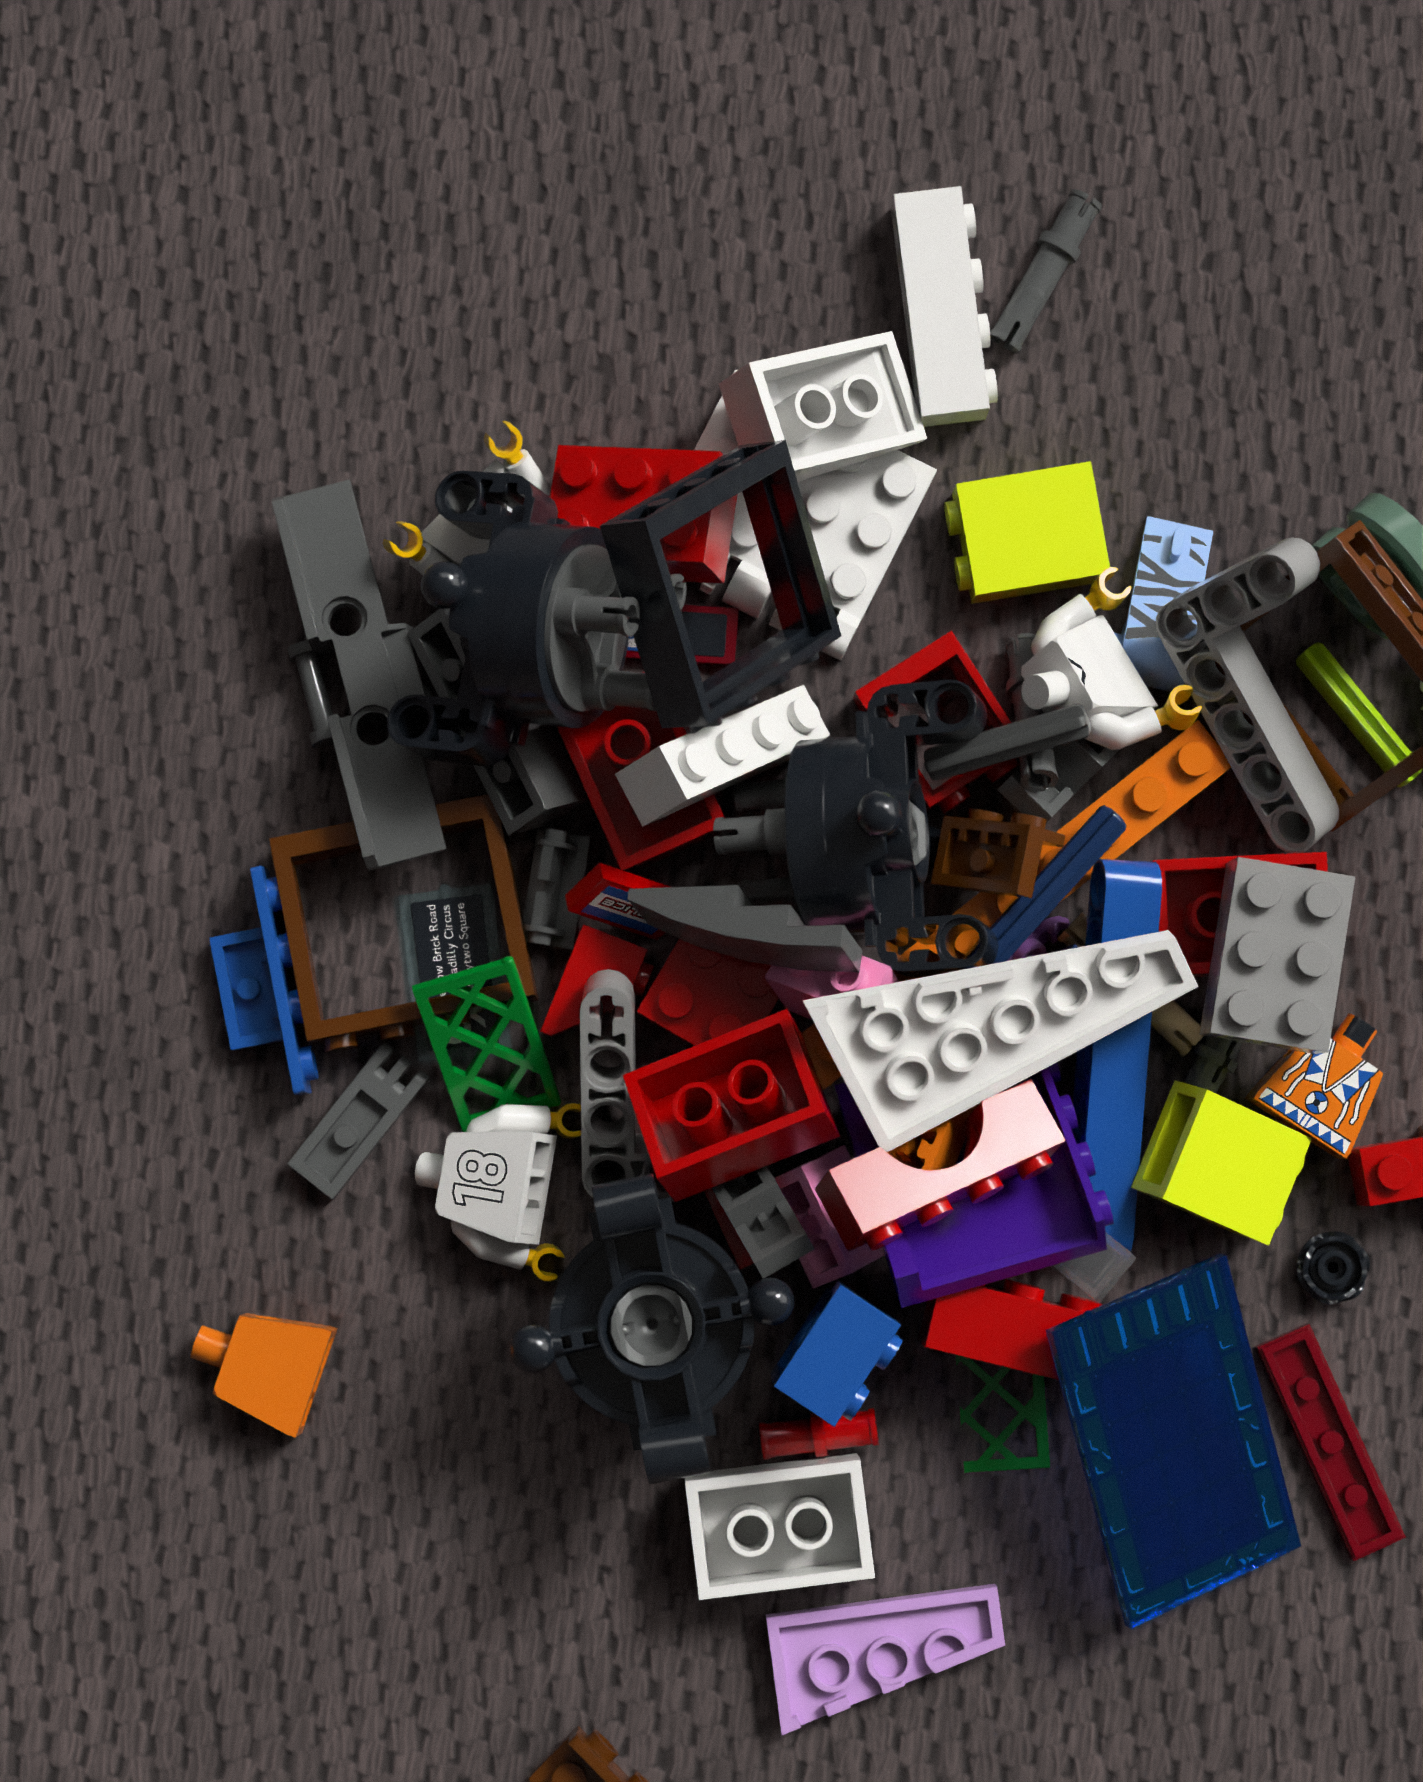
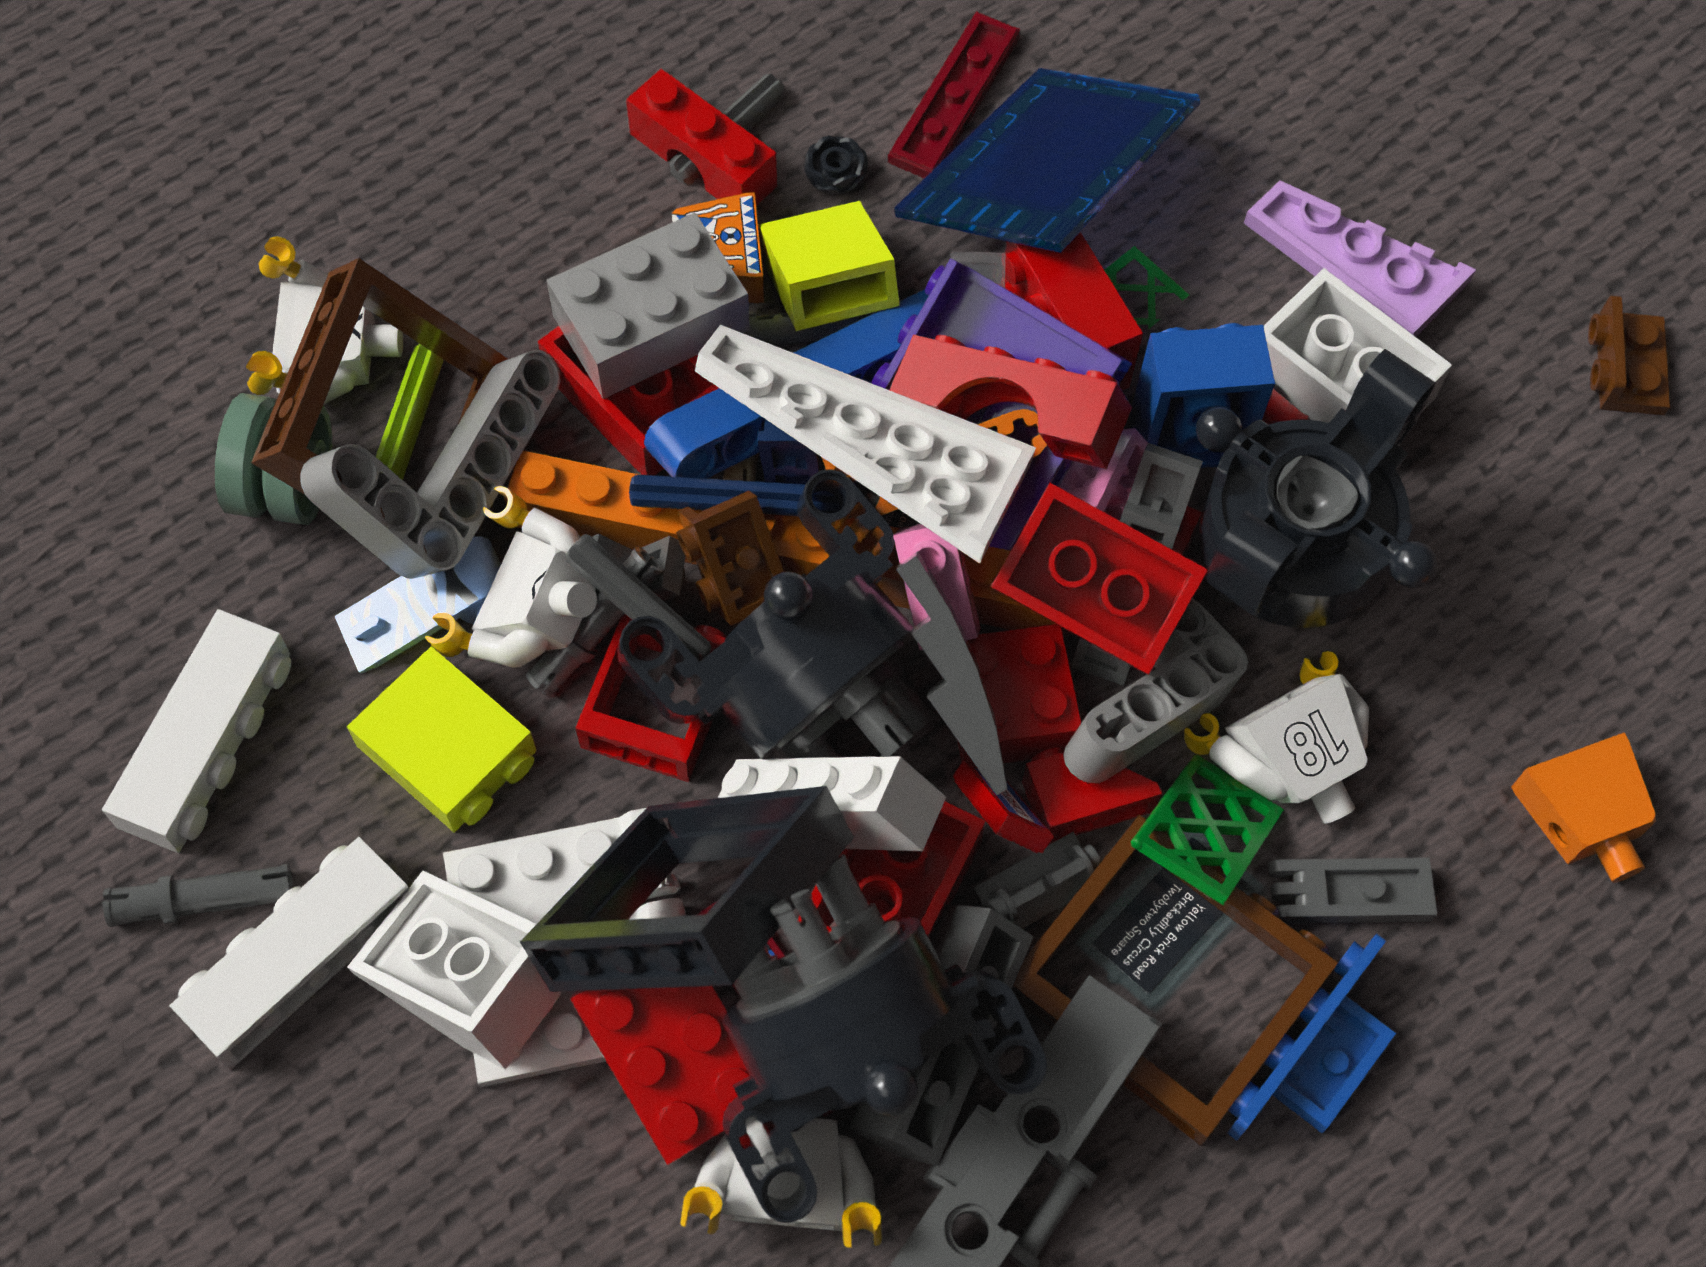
camera: 130 degrees left, 20 degrees down
(1183, 356) = (198, 732): none -> white brick

